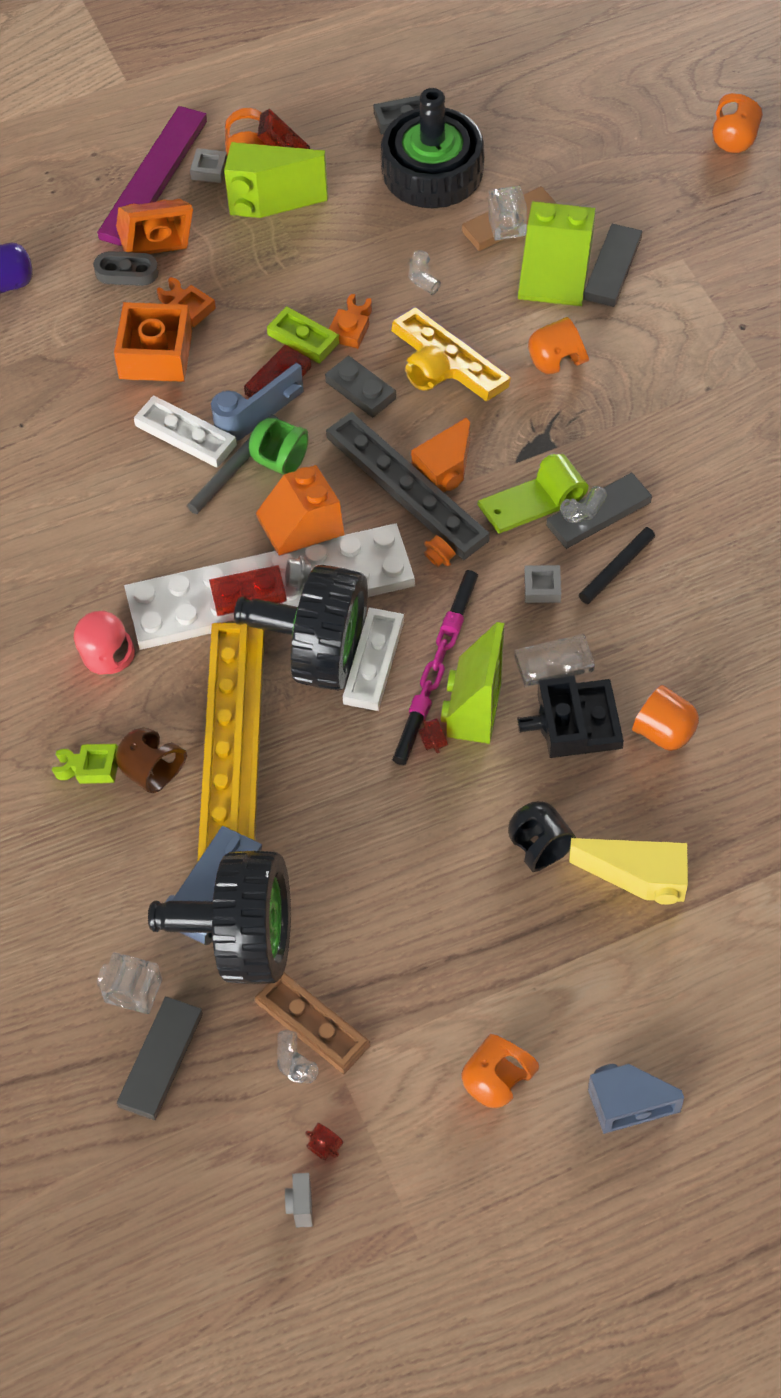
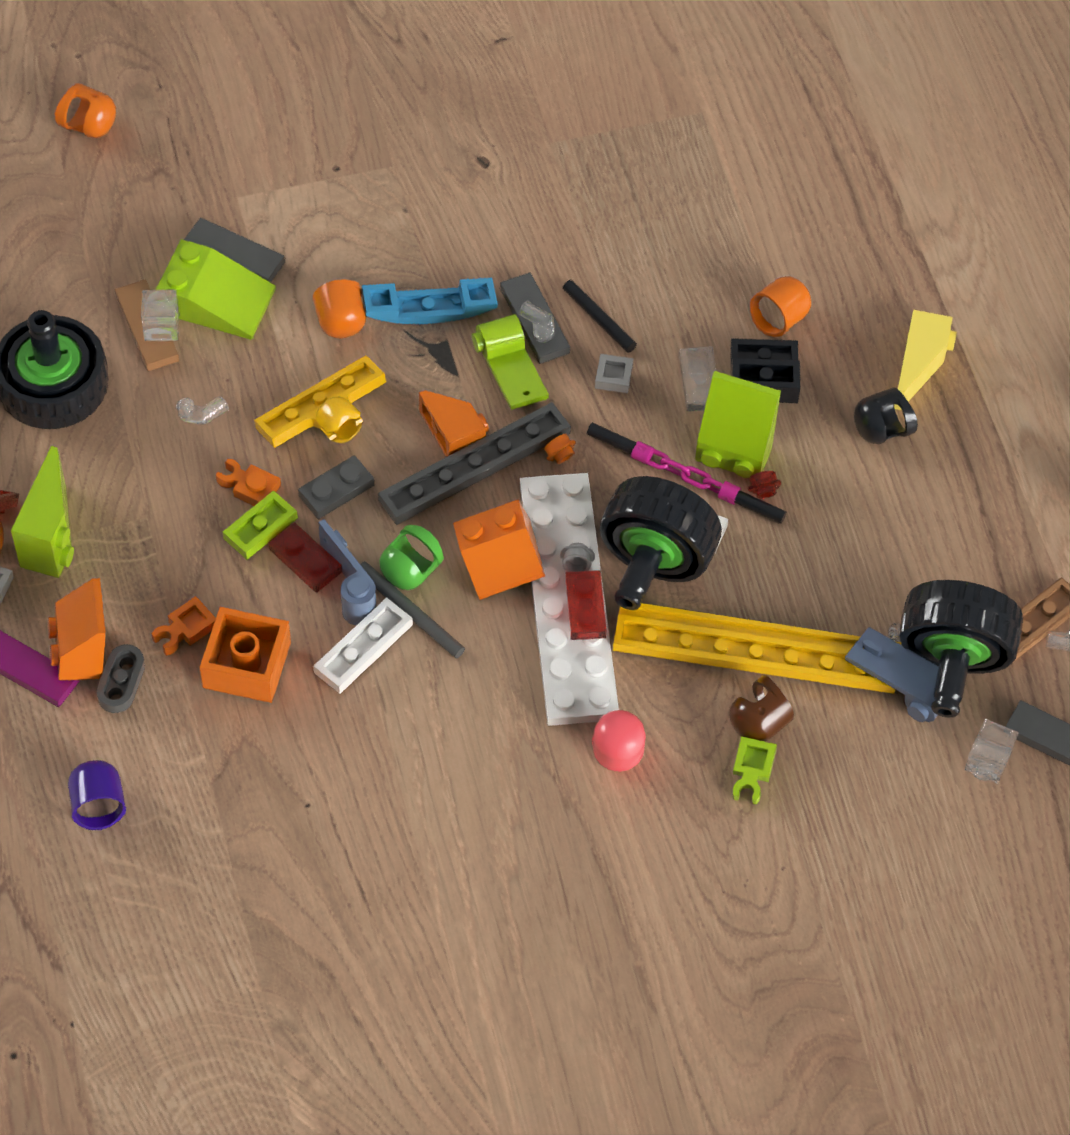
camera: 85 degrees left, 0 degrees up
(587, 416) = (429, 305): none -> dark azure slope

